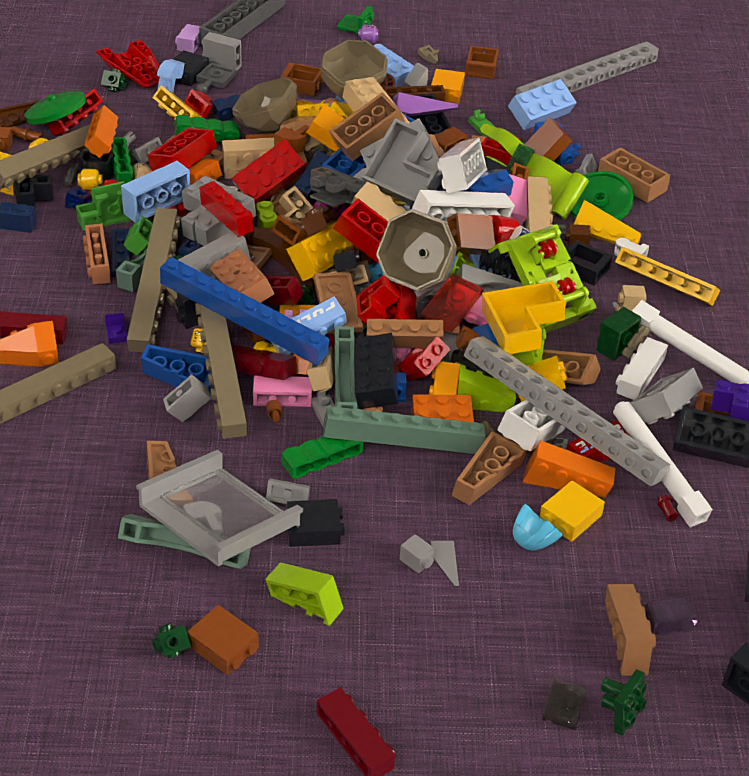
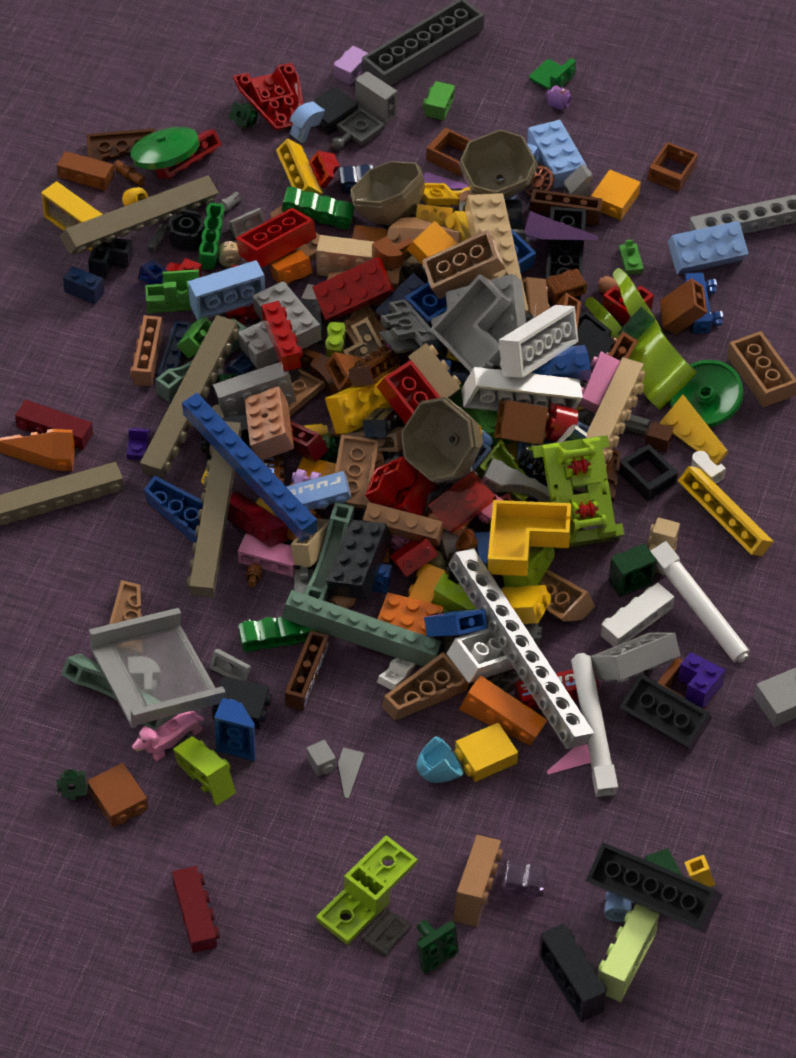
camera: 20 degrees right, 10 degrees up
(89, 179) = (173, 250): yellow head -> none
(101, 132) = (198, 197): orange brick -> none
(187, 398) = (172, 544): light grey brick -> none
(250, 571) = (168, 734): none -> bright pink animal
(273, 48) = (439, 100): none -> bright green brick
(327, 543) = (234, 730): none -> blue slope
(367, 478) = (306, 670): none -> reddish brown brick
(429, 54) = (619, 139): dark tan slope -> none
(450, 464) = (396, 673): none -> white slope
(494, 401) = (455, 622): none -> blue brick
(528, 666) = (366, 890): none -> lime bracket
(588, 165) = (717, 347): light grey plate -> none
(635, 341) = (648, 581): dark tan axle -> none
(649, 498) = (576, 757): none -> bright pink sticker
(666, 504) = (582, 767): dark red pin -> none

